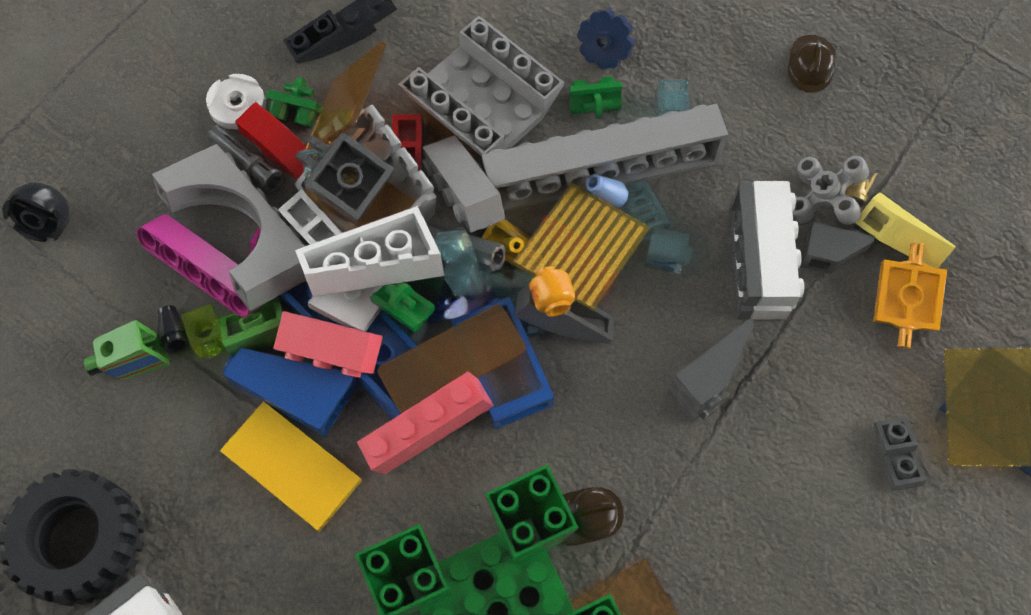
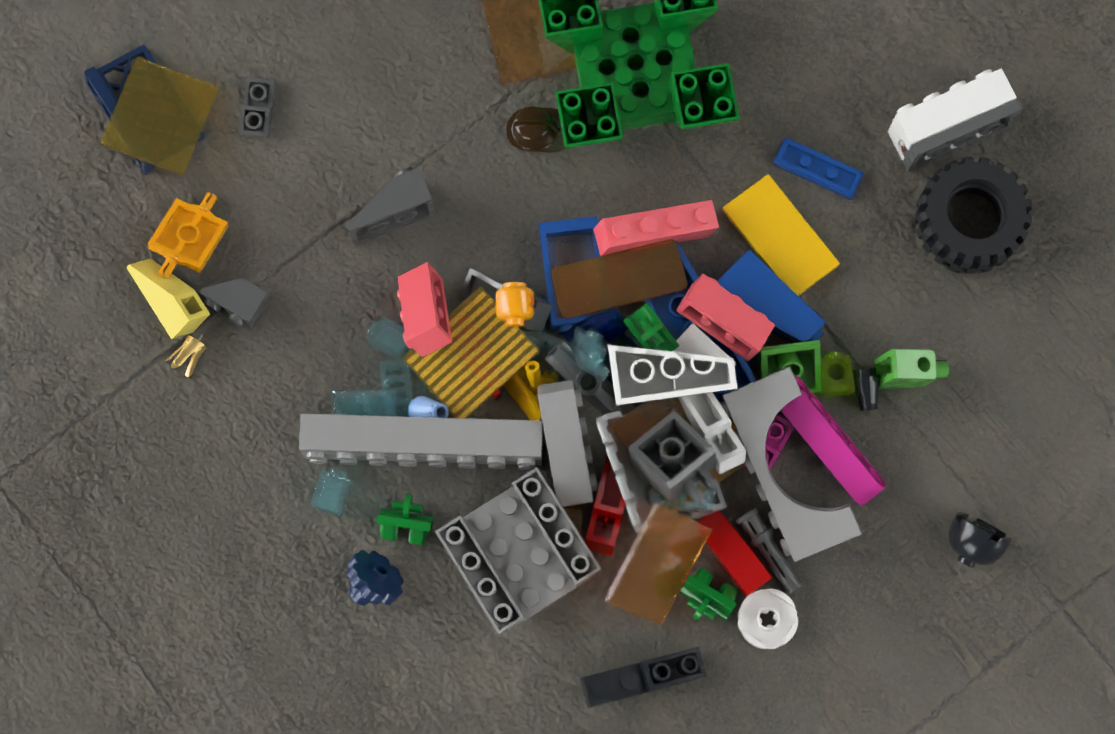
camera: 165 degrees left, 10 degrees up
(262, 555) = (818, 168): none -> blue tile
(643, 272) = (424, 310): none -> coral brick
(673, 186) = (365, 402): none -> clear light blue slope
(765, 250) = (304, 305): white piece -> none
(811, 63) = (170, 509): dark brown piece -> none
(829, 189) = (230, 349): light grey gear -> none

